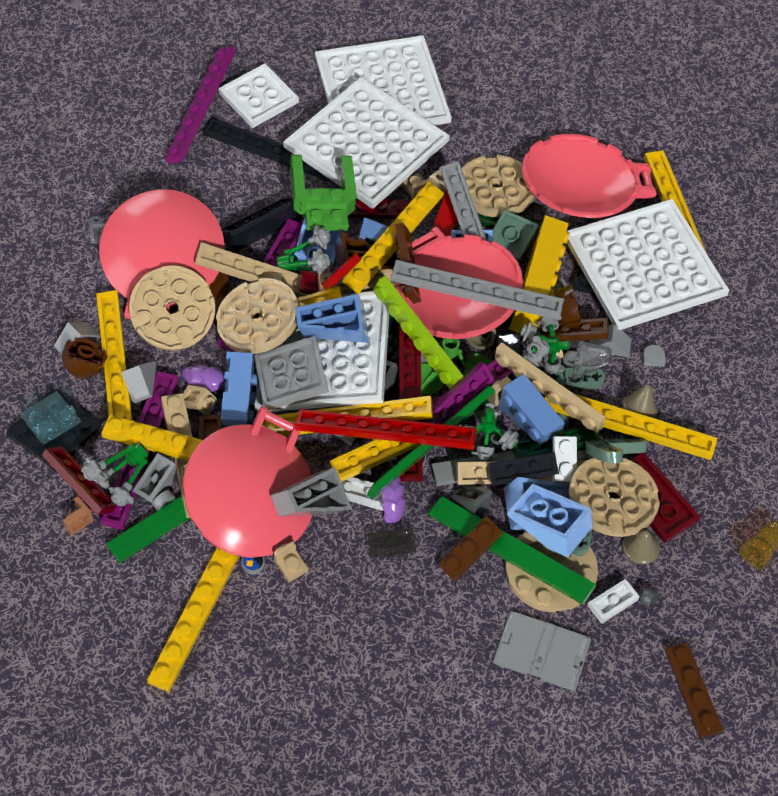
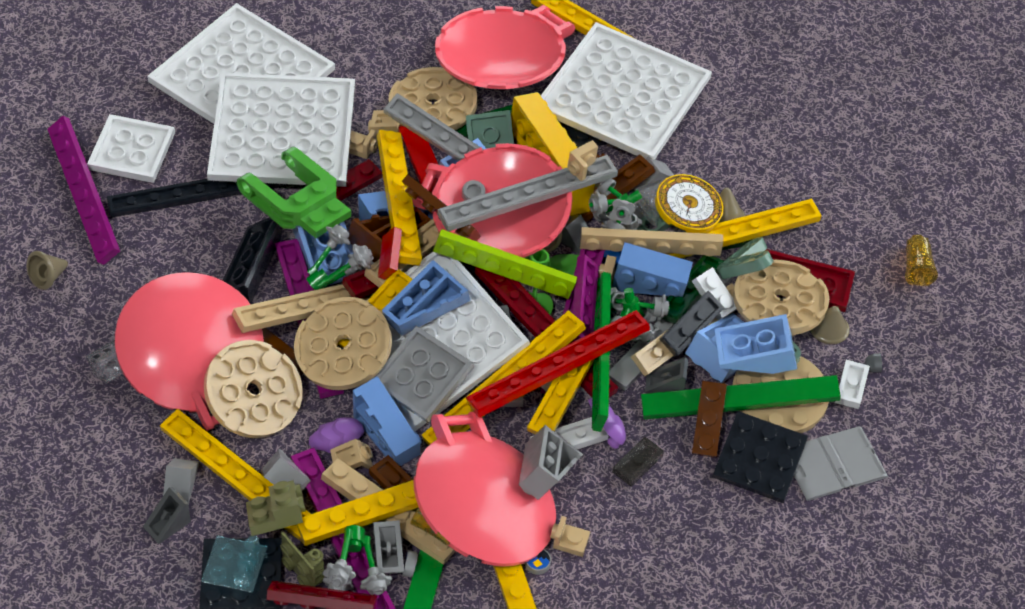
camera: 40 degrees left, 5 degrees down
(44, 358) = (168, 516): none -> dark grey slope
(83, 358) = (212, 491): reddish brown cylinder -> none
(89, 447) = (307, 566): none -> olive hinge
(104, 399) = (278, 510): none -> olive plate
(127, 143) = (41, 263): none -> dark tan hat
(449, 264) = (472, 189): none -> light grey tile
(486, 604) = (760, 456): none -> black plate
(535, 287) = (581, 159): none -> tan bracket
(607, 378) = (689, 203): none -> tile
(654, 356) = (696, 165): light grey tile -> none
(693, 691) = (971, 411): reddish brown plate -> none

